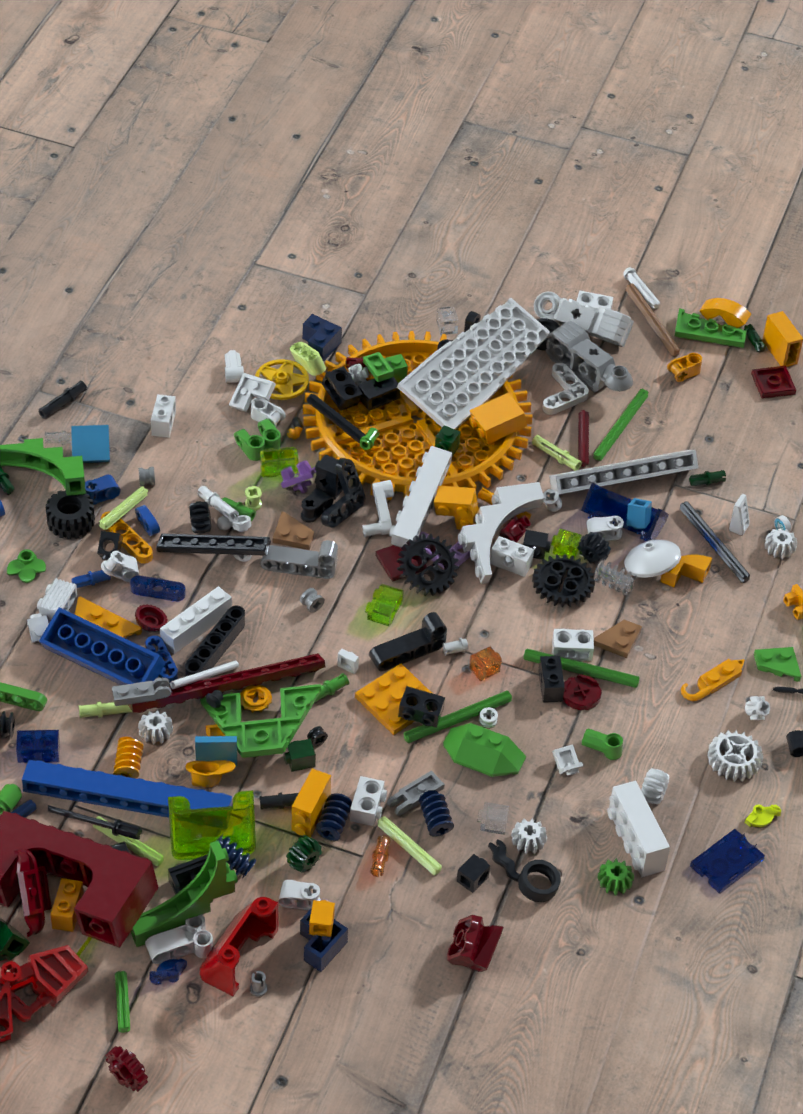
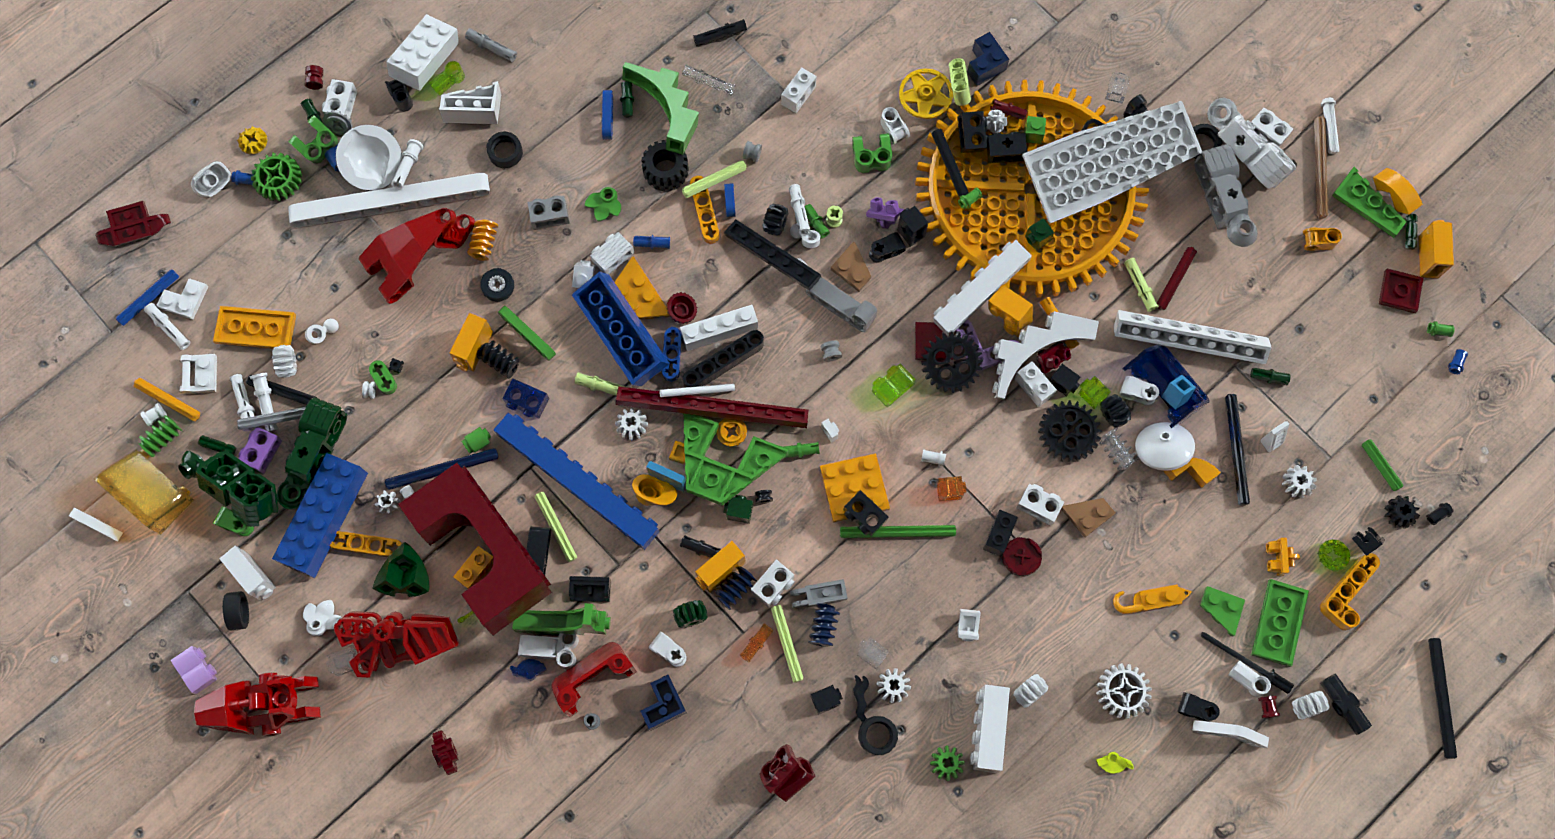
camera: 30 degrees right, 25 degrees up
(33, 891) = (448, 547): dark red plate -> none
(91, 443) = (719, 94): dark azure tile -> none
(102, 489) = (707, 149): blue piece -> none
(106, 538) = (689, 212): black brick -> none
(117, 827) = (549, 514): black piece -> none
(121, 566) = (681, 243): white piece -> none
(122, 1001) = (478, 680): bright green axle -> none
(128, 757) = (592, 446): light orange piece -> none
(141, 692) = (628, 389): light grey hinge -> none
(152, 582) = (704, 269): clear blue beam -> none
(196, 828) = (623, 559): clear neon green windscreen -> none
(214, 699) = (692, 421): black piece -> none
(233, 367) = (888, 64): white piece -> none
(236, 859) = (629, 588): dark blue piece -> none
(248, 388) = (889, 93): white plate -> none
(274, 460) = (871, 186): clear neon green brick -> none
(298, 427) = (916, 151): light orange arm -> none
(322, 918) = (665, 694): light orange brick -> none
(353, 493) = (925, 254): black beam -> none
(378, 366) = (1016, 124): bright green plate -> none
(381, 491) = (948, 264): white beam -> none
(411, 645) = (891, 439): black beam -> none
(483, 750) = (898, 580): bright green wedge -> none
(488, 723) = (921, 539): white bush -> none
(497, 418) = (1100, 229): light orange brick -> none
(556, 500) = (1110, 341): white bush -> none
(575, 392) = (1195, 216): white beam -> none
(587, 669) = (1036, 531): bright green axle -> none
(609, 744) = (1009, 619): bright green piece -> none
(620, 425) = (1221, 277): bright green axle -> none
(726, 859) = (1057, 792): clear blue piece -> none
(757, 708) = (1172, 651): white gear -> none
(783, 523) = (1313, 461): white tile -> none

